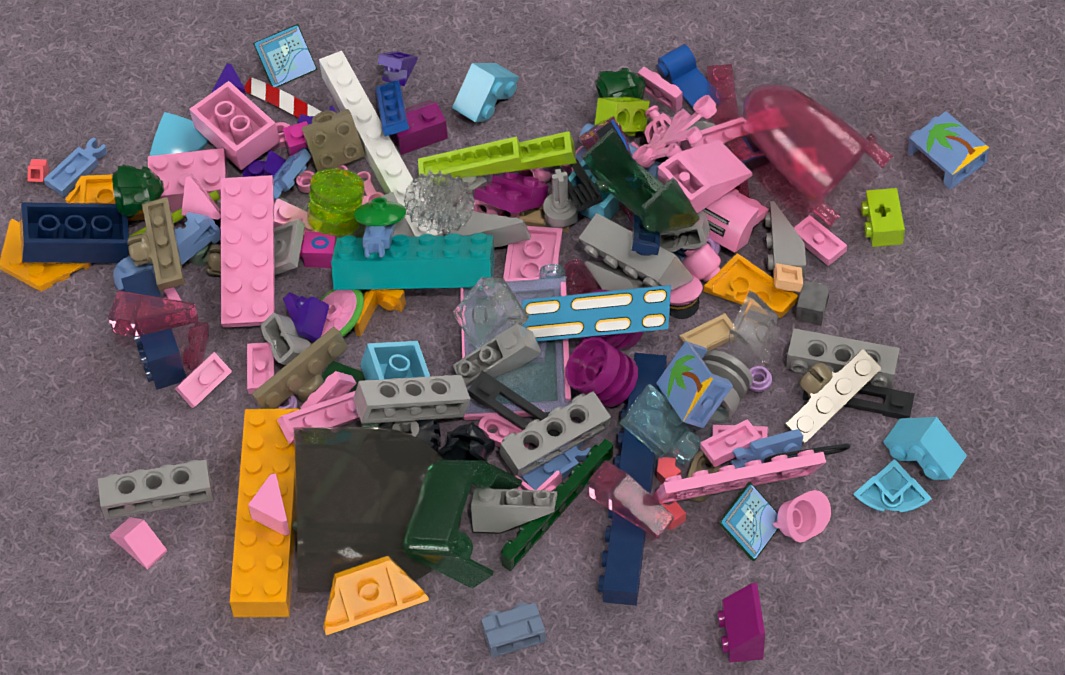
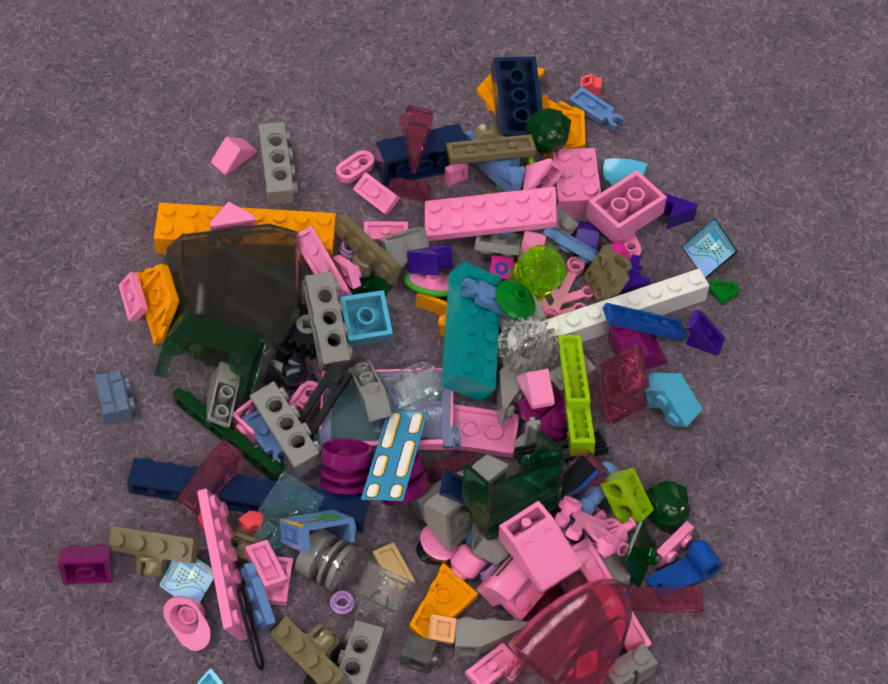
camera: 85 degrees right, 0 degrees up
(162, 407) = (353, 166): none -> bright pink plate
(279, 98) = (667, 253): sticker -> none
(333, 45) = (723, 291): none -> green tile
(365, 626) = (133, 297): none -> bright pink plate
(481, 112) = (624, 384): none -> clear pink bracket
(495, 189) = (537, 388): none -> bright pink slope
(671, 108) = (640, 554): none -> dark green piece
(721, 556) = (153, 548): none -> dark tan plate

